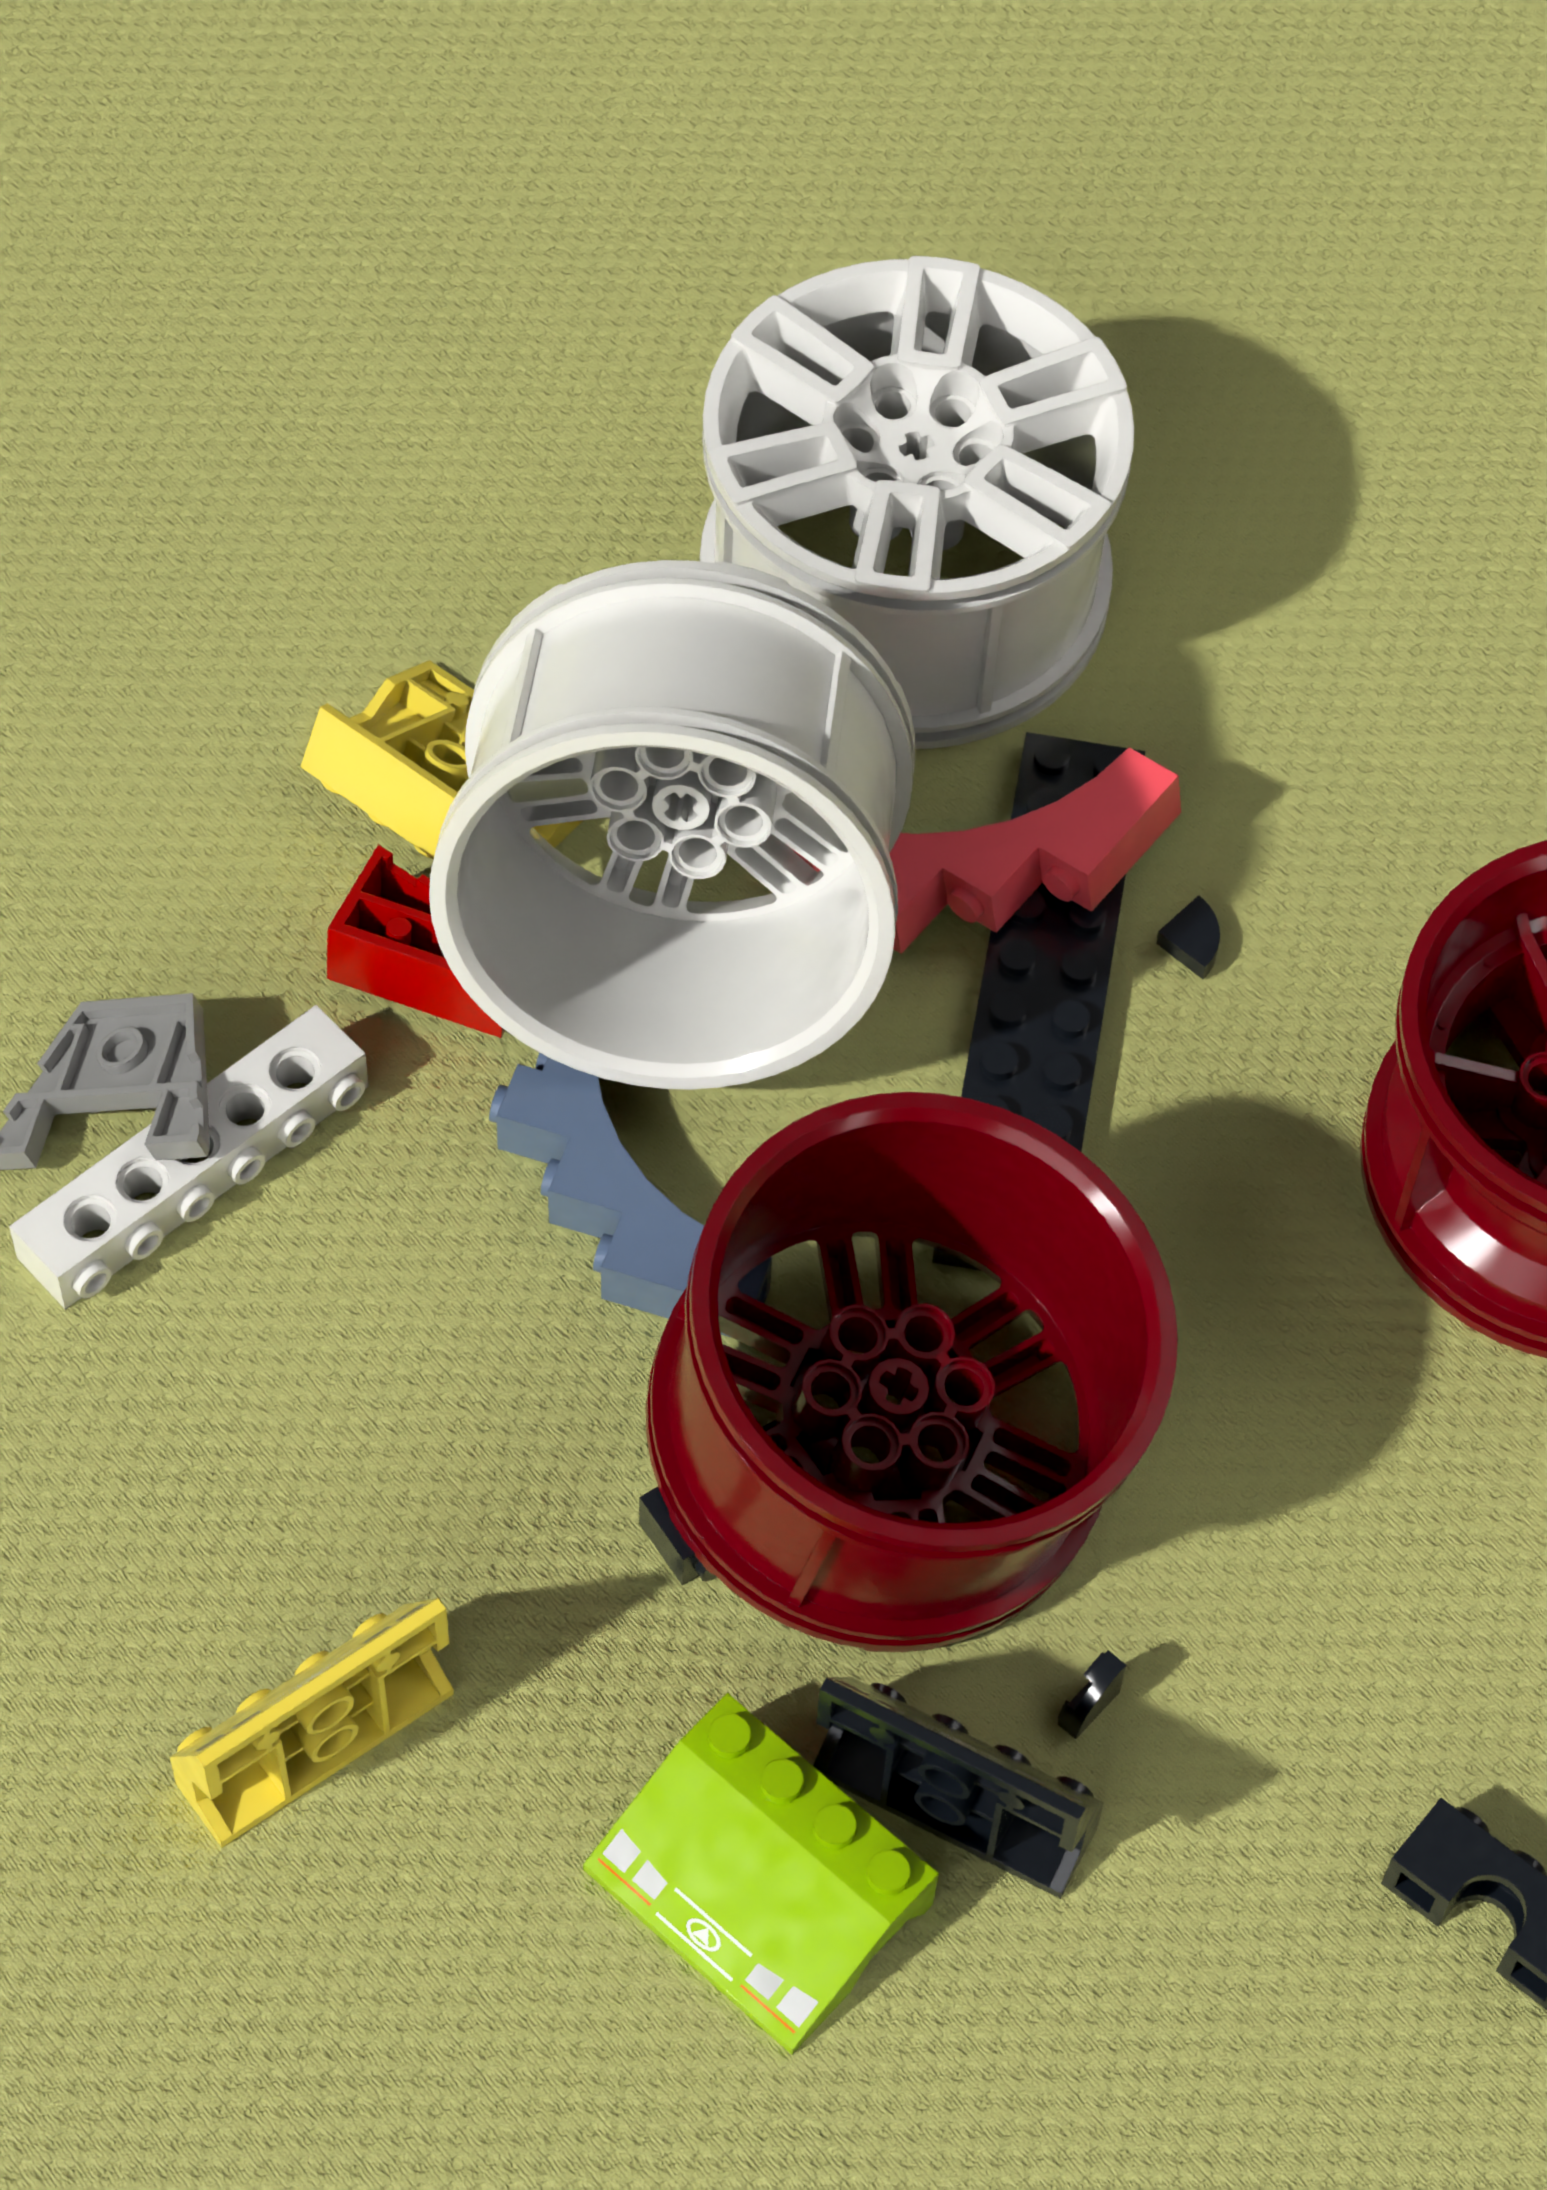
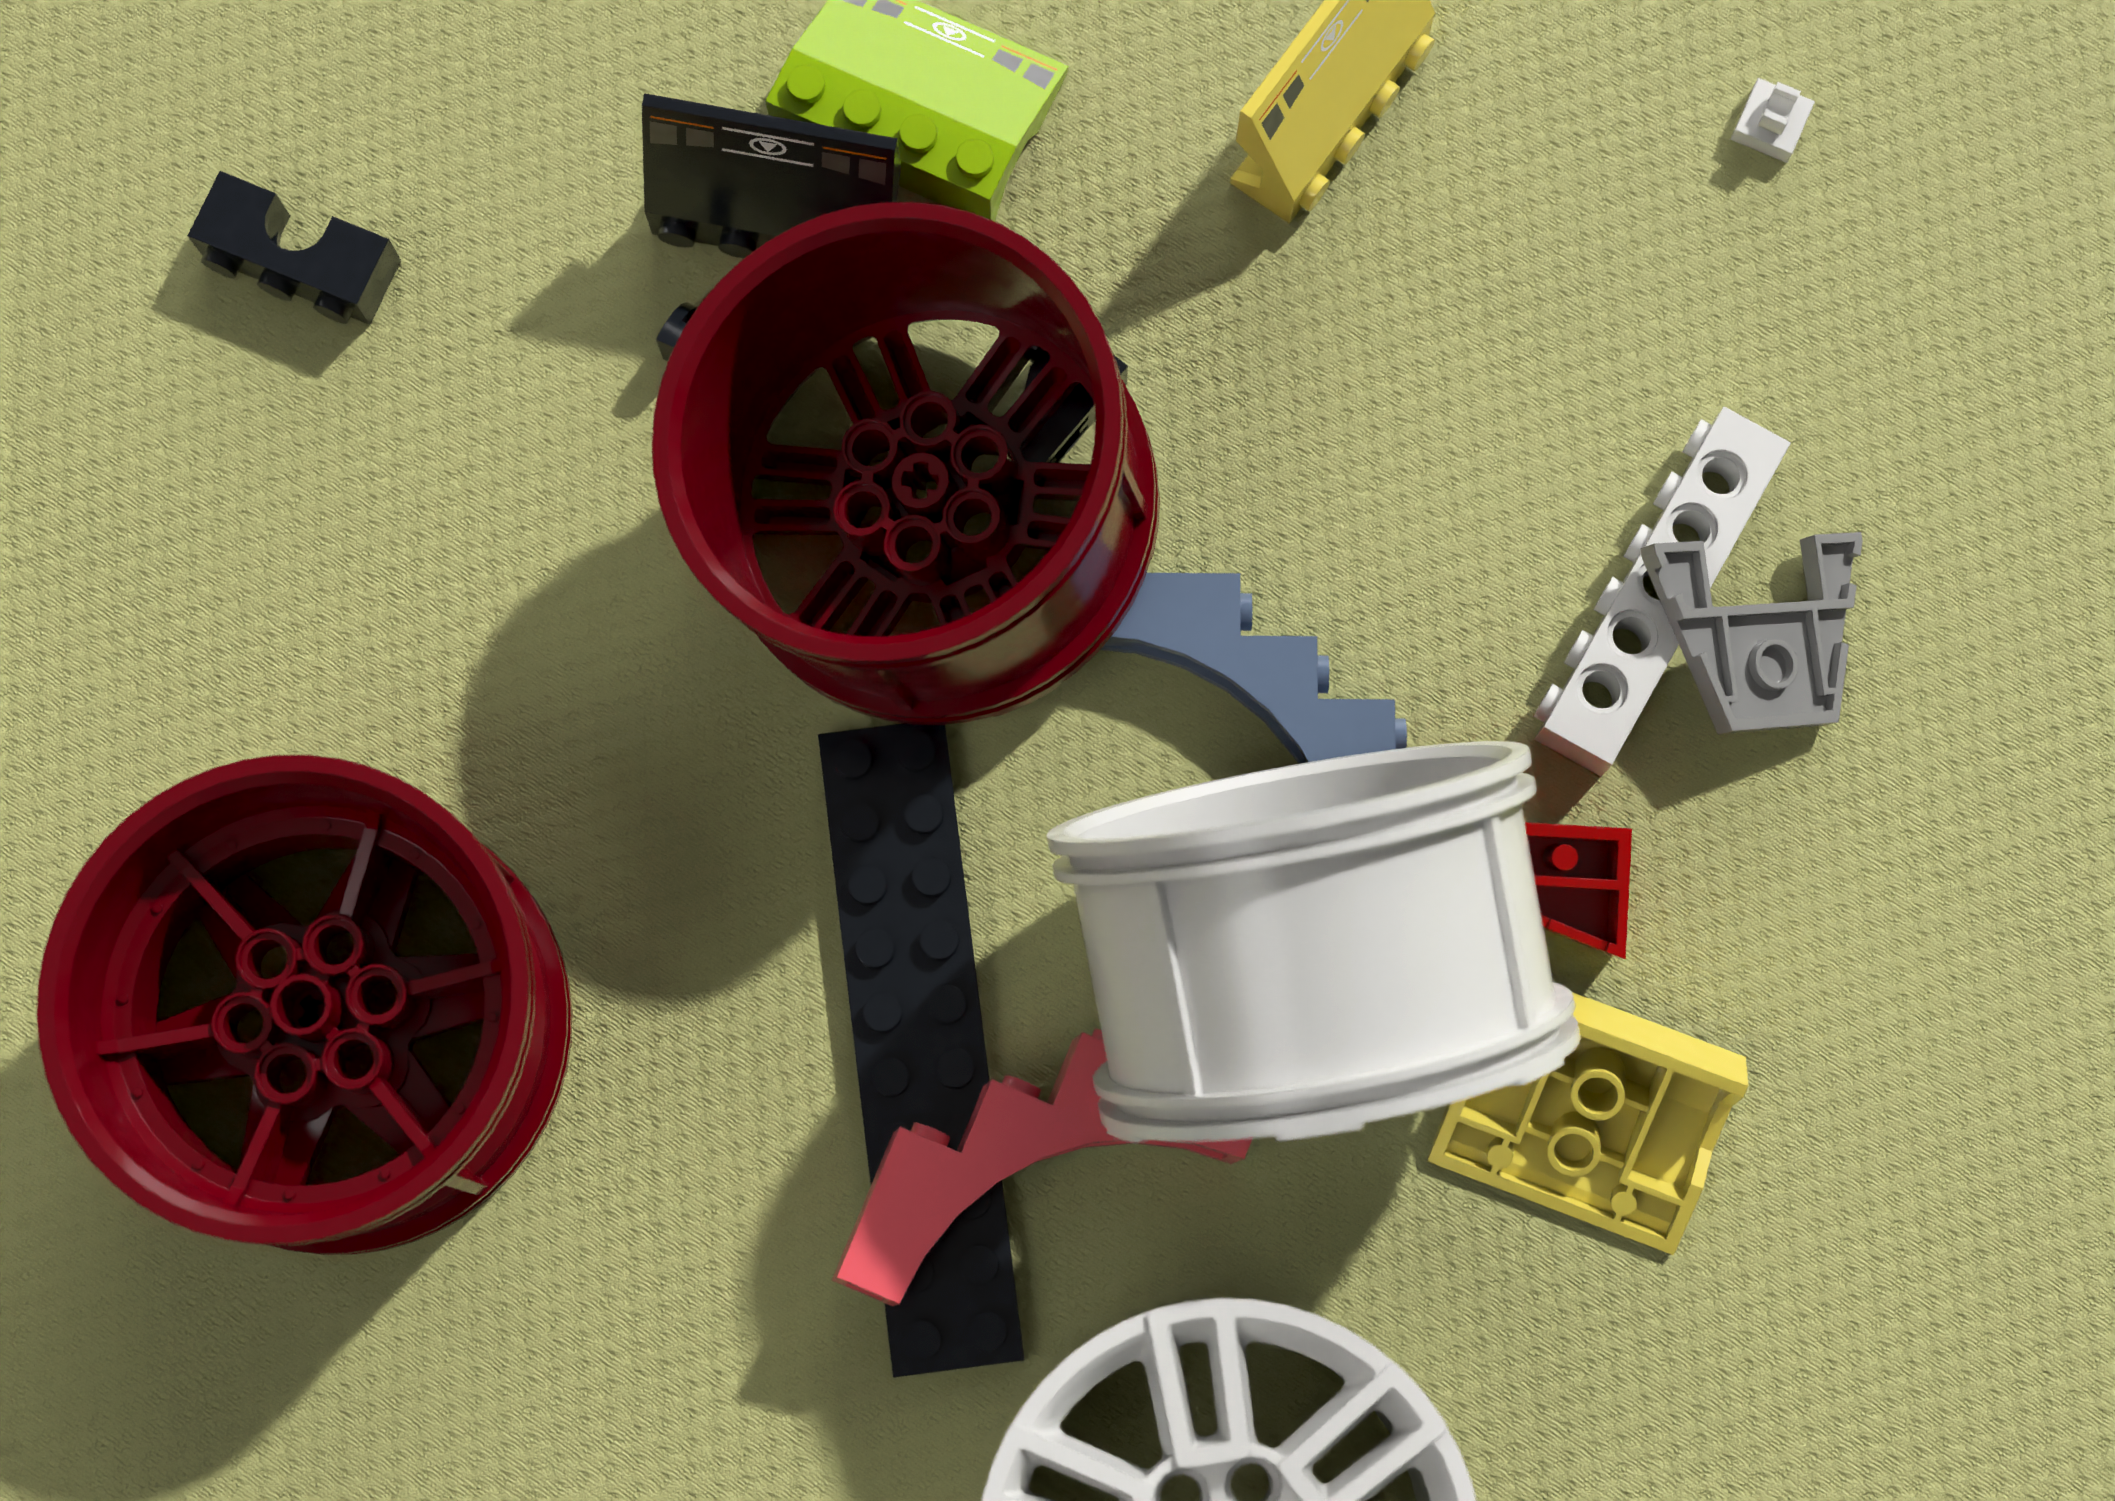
camera: 165 degrees right, 20 degrees up
(1192, 937) = (786, 1165): black tile -> none

